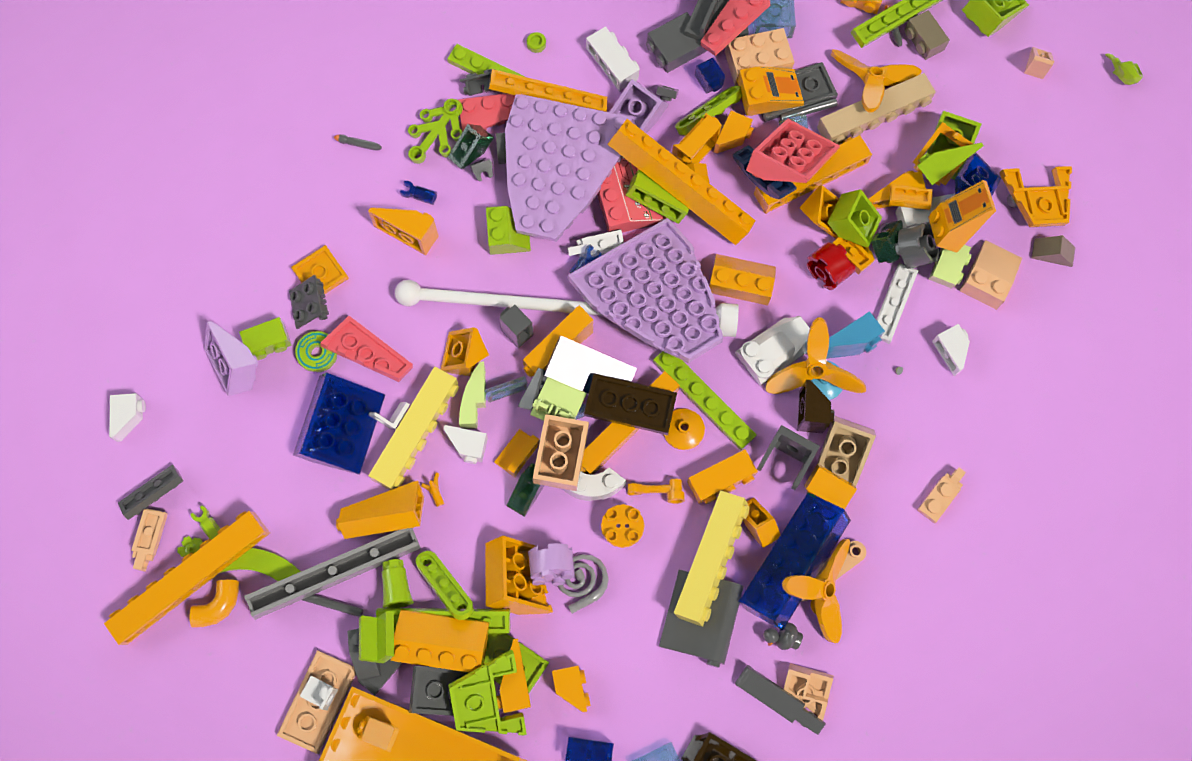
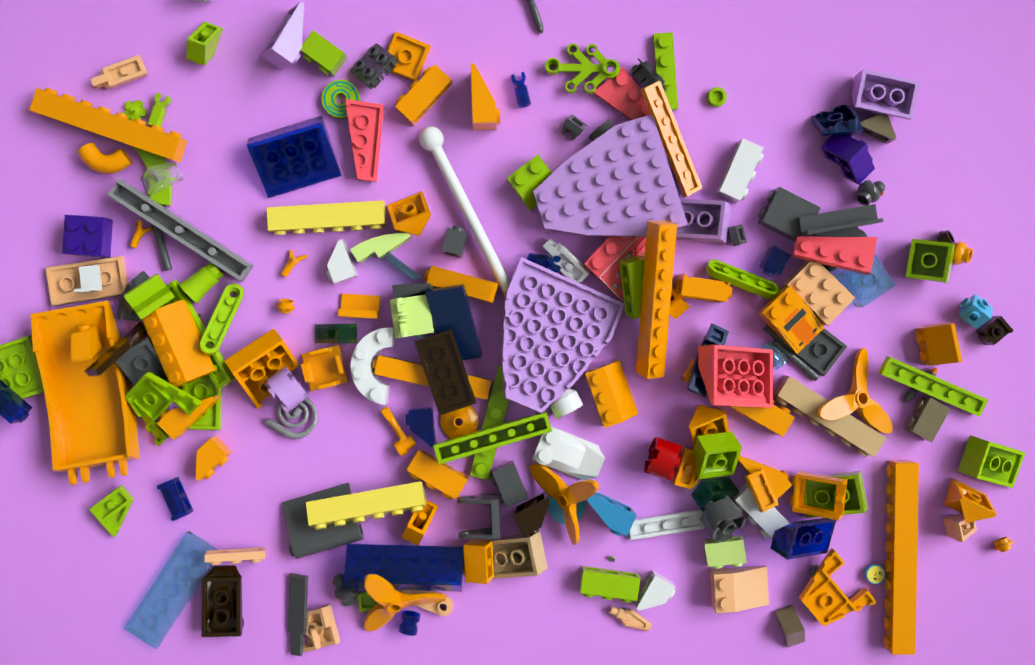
camera: 65 degrees right, 15 degrees up
(150, 492) = (153, 50): dark grey plate -> none
(178, 442) = (203, 43): none -> lime slope
(270, 561) = (160, 177): none -> clear slope
(276, 669) = (87, 236): none -> dark purple brick
(306, 618) = (139, 232): none -> light orange bar
(364, 276) = (423, 94): none -> light orange brick
(383, 513) = (247, 237): light orange slope -> none
(396, 417) = (326, 197): white bracket -> none
(407, 701) = (117, 350): none -> dark brown tile
(470, 145) = (586, 105): slope -> none
(471, 520) = (285, 305): none -> light orange plate
(553, 520) = (324, 368): none -> light orange panel
(560, 452) = (368, 345): light nougat brick -> none
(622, 536) = (358, 418): light orange plate -> none
(666, 461) = (422, 424): none -> clear blue slope
(684, 723) = (235, 556): none -> light nougat plate
(718, 399) = (492, 437): none -> lime brick
(734, 132) = (735, 312): light orange slope -> none
(771, 415) = (509, 484): none -> dark grey piece
(807, 623) = (365, 601): none -> lime tile
(853, 593) = (409, 622): none -> clear blue wheel
(922, 384) = (609, 584): none -> lime brick
(942, 162) = (808, 501): lime slope -> none
(942, 495) = (529, 646): light nougat hinge -> none
(961, 216) = (763, 545): light orange slope -> none
(967, 386) = (630, 618): none -> light nougat piece
(1021, 42) = (969, 502): none -> light orange slope
(1041, 123) = (901, 557): none -> light orange brick
(1043, 154) = (874, 573): none -> light yellow tile
(1076, 38) = (1003, 544): none -> light orange plate
(1127, 71) = (996, 604): lime piece -> none

